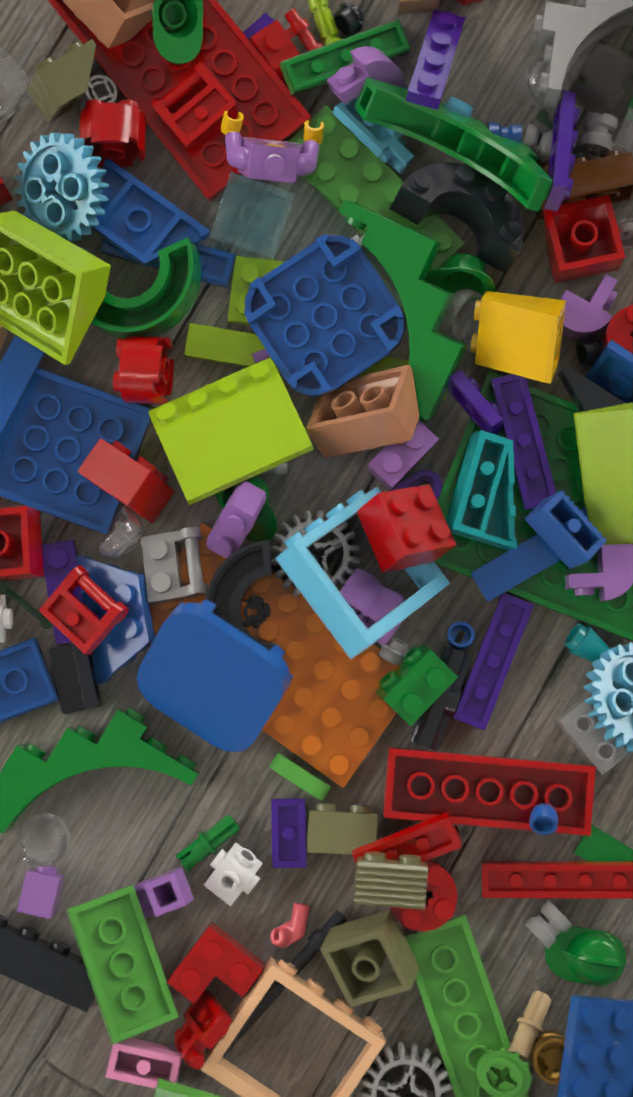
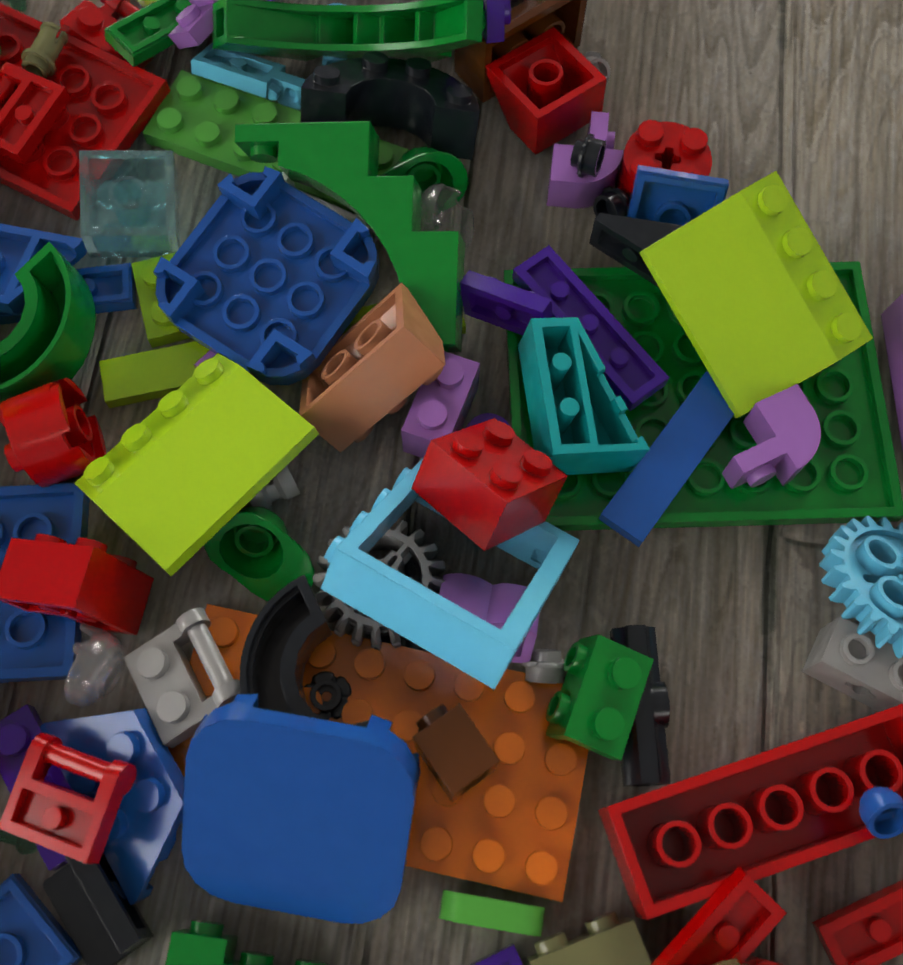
camera: 25 degrees left, 15 degrees down
(232, 61) = (44, 50): none -> olive pin
(236, 519) = (248, 570): medium lavender brick -> none
(271, 158) = (128, 119): medium lavender torso -> none
(314, 680) = (454, 750): none -> reddish brown brick
(453, 633) = (636, 606): blue hinge -> none
(493, 661) = (685, 626): dark purple plate -> none
(519, 334) = (523, 203): yellow slope -> none
(565, 529) = (702, 398): blue brick -> none
(582, 314) = (588, 155): none -> black plate
(585, 643) = (792, 548): teal cone -> none

